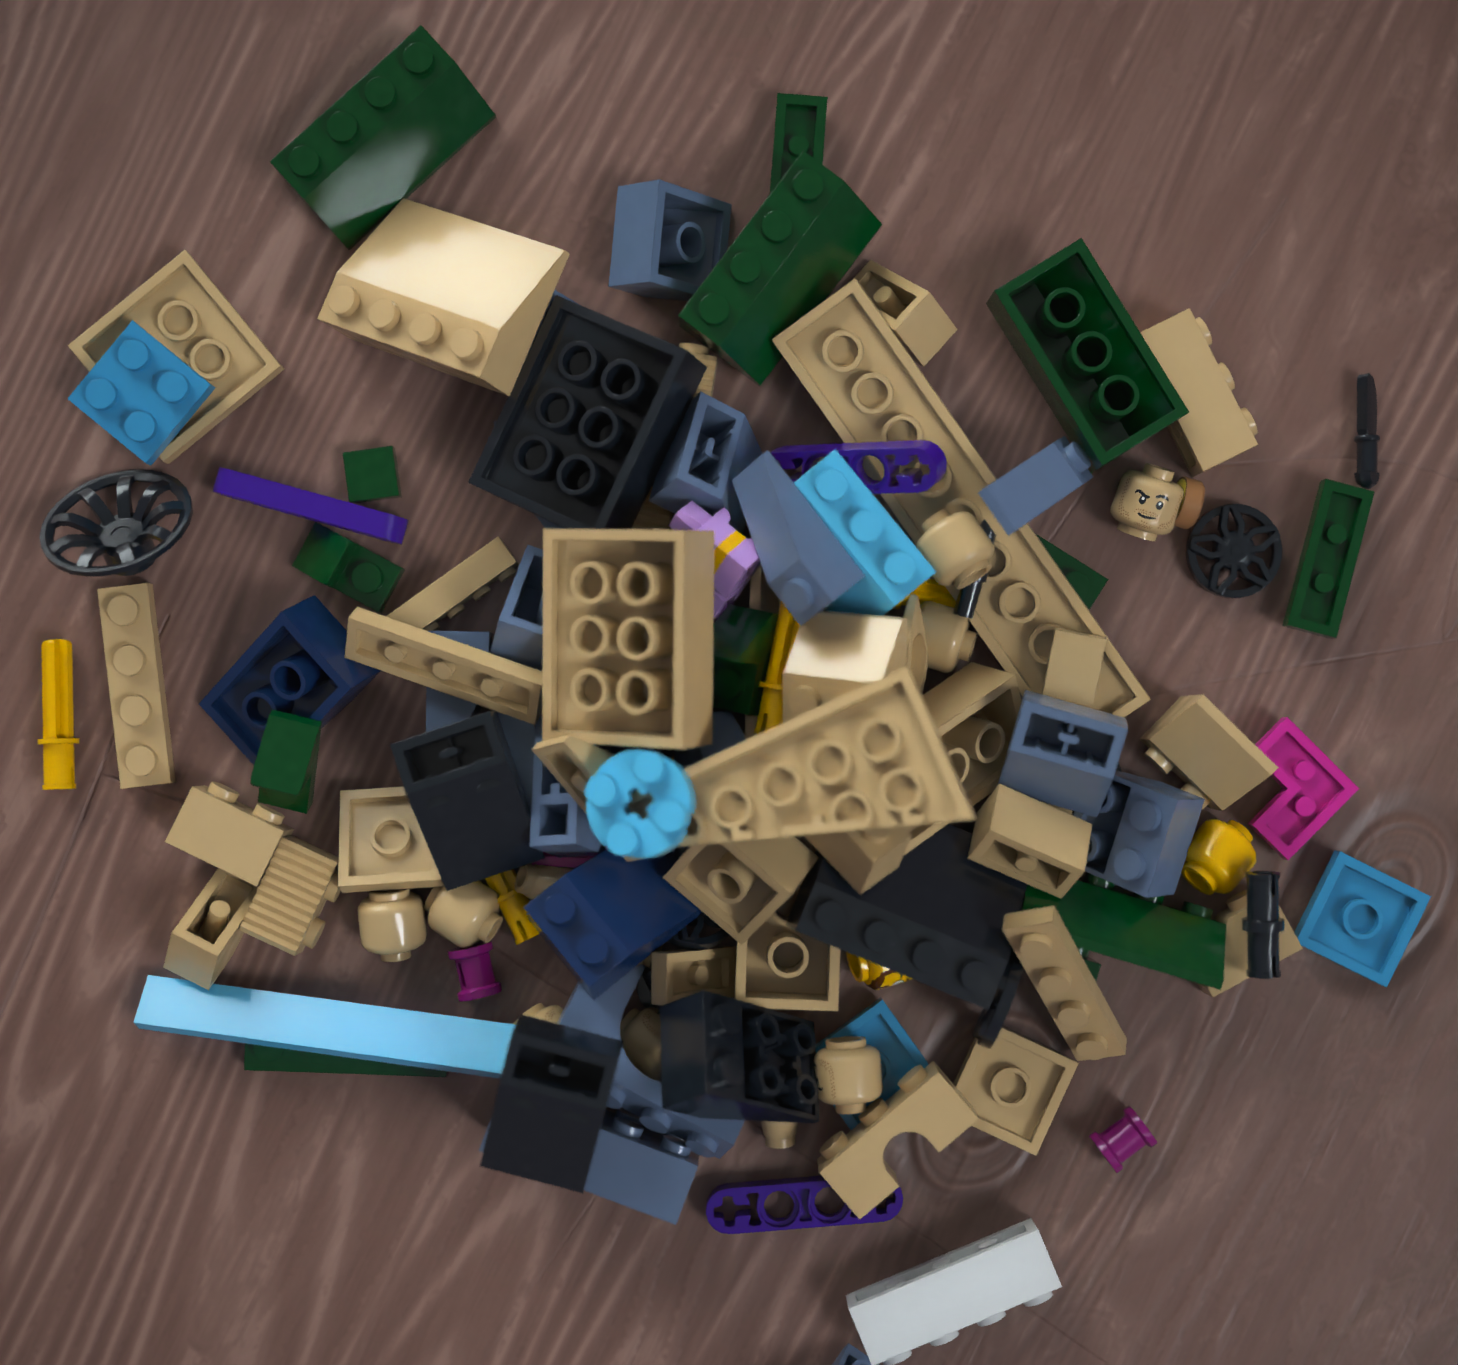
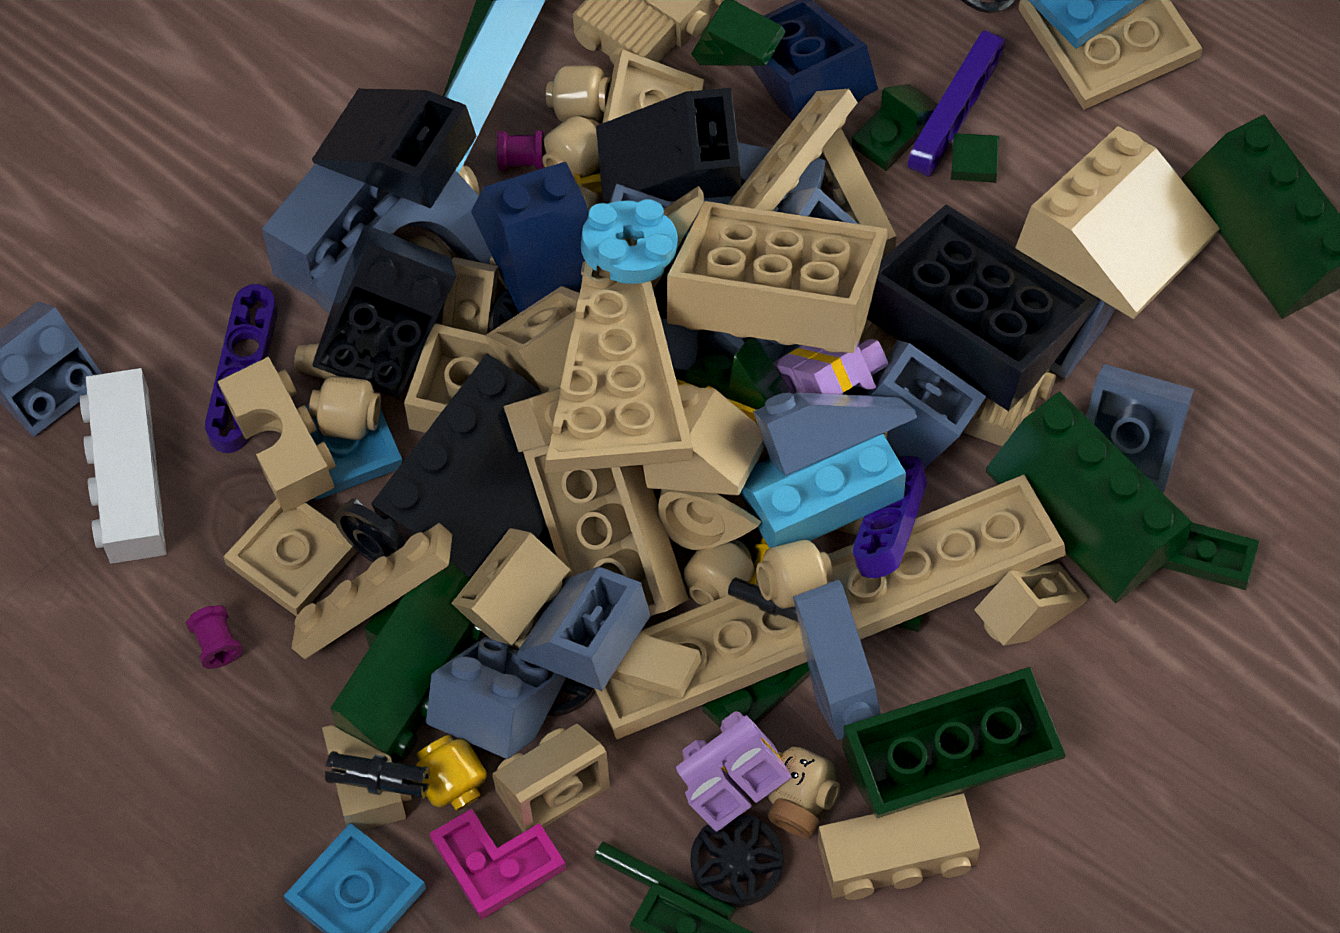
camera: 105 degrees right, 25 degrees down
(1163, 570) = (728, 768): none -> lavender hips
(1274, 618) = (648, 874): none -> dark green bar

